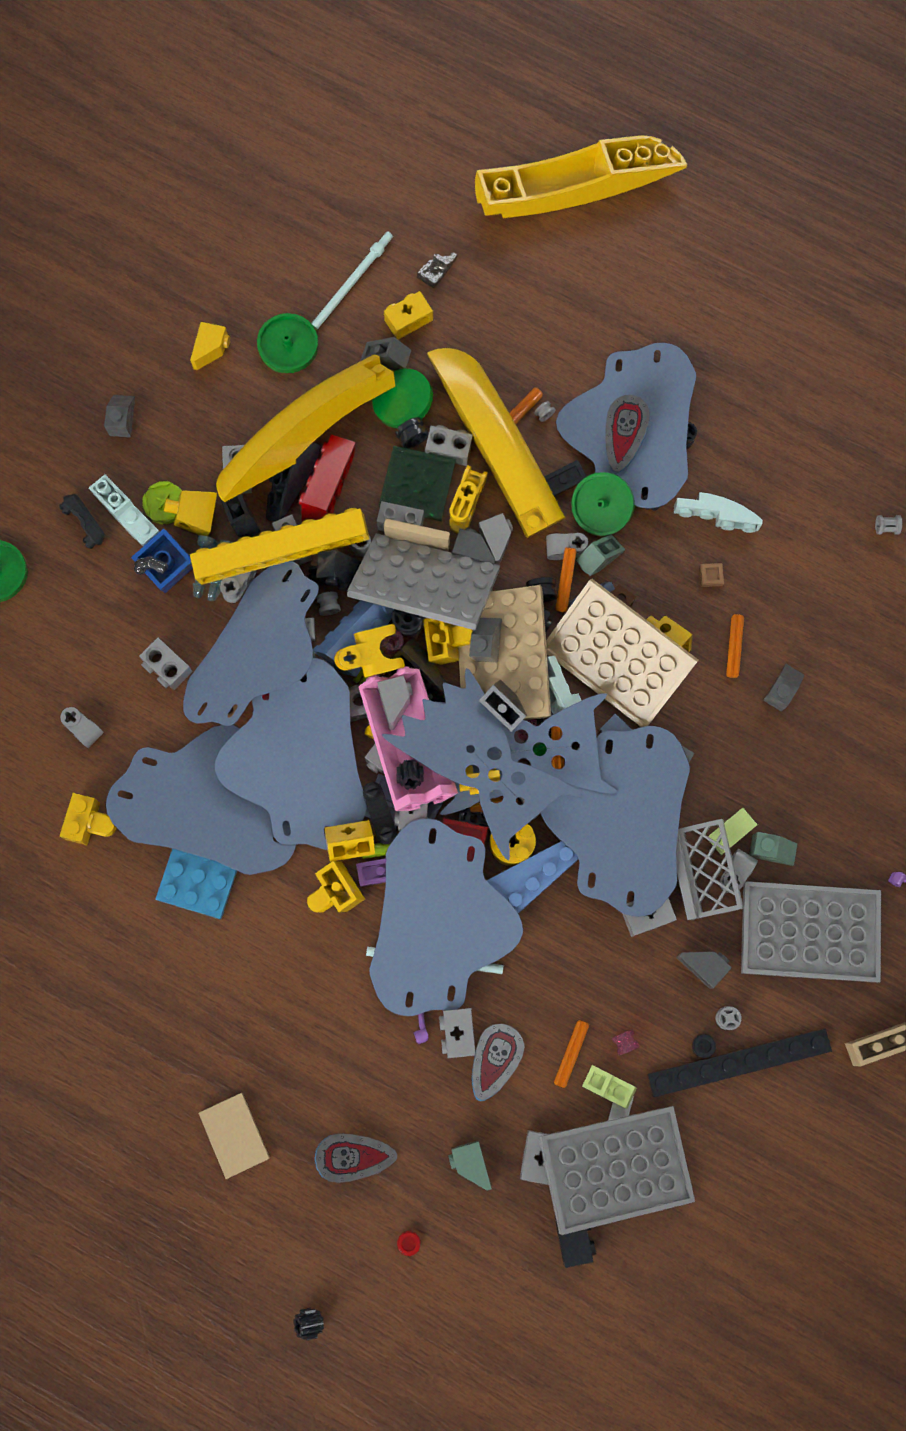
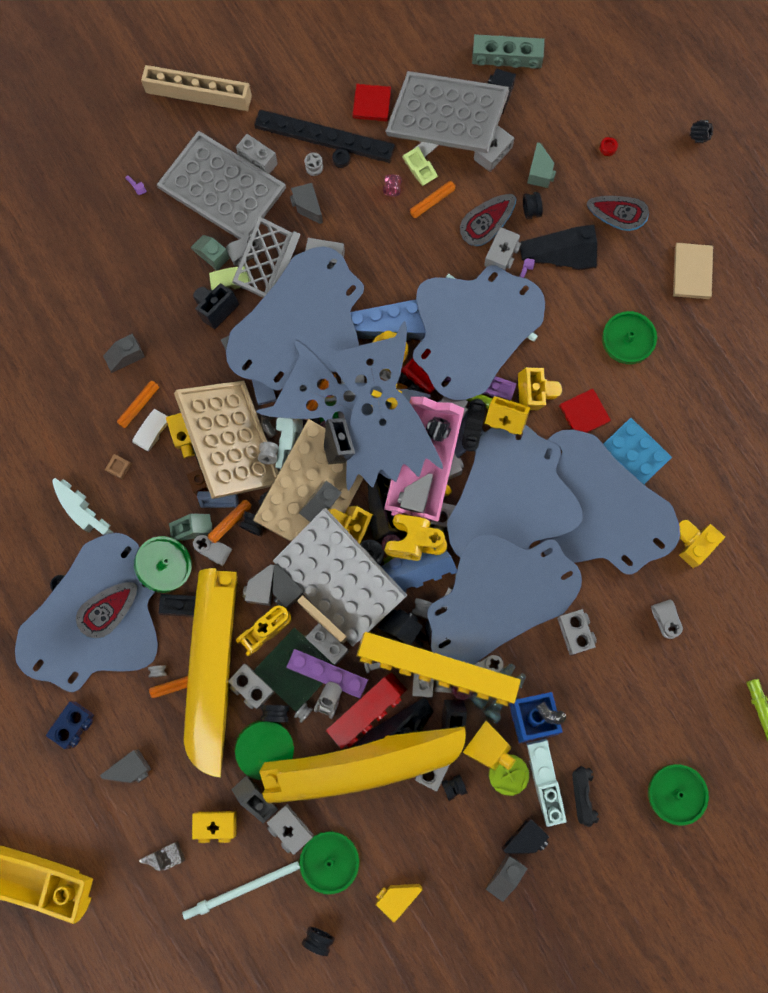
camera: 145 degrees left, 0 degrees up
(118, 454) = (526, 839): none -> black slope
(208, 462) = (454, 787): none -> black wheel
(259, 274) = (318, 941): none -> black wheel
(266, 1012) = (629, 337): none -> green piece
(271, 898) = (585, 412): none -> red tile
(338, 347) = (300, 832): none -> light grey brick
(368, 471) = (329, 699): none -> light grey piece
(386, 449) = (303, 712): none -> light grey bush
(386, 491) = (327, 673): none -> medium lavender plate
(388, 1077) = (568, 248): none -> black wedge
(454, 1107) = (532, 205): none -> black wheel
(514, 317) = (128, 769): none -> dark grey slope
(570, 663) = (268, 453): none -> light grey wheel
(585, 693) = (267, 426): none -> clear smoke arm
(593, 324) = (67, 721): none -> dark blue brick
(629, 1291) = (508, 51): none -> sand green brick
(704, 627) = (149, 431): none -> white slope
(712, 1138) = (371, 102): none -> red tile
(726, 790) = (215, 304): none -> black brick
(796, 989) = (257, 153): none -> light grey brick

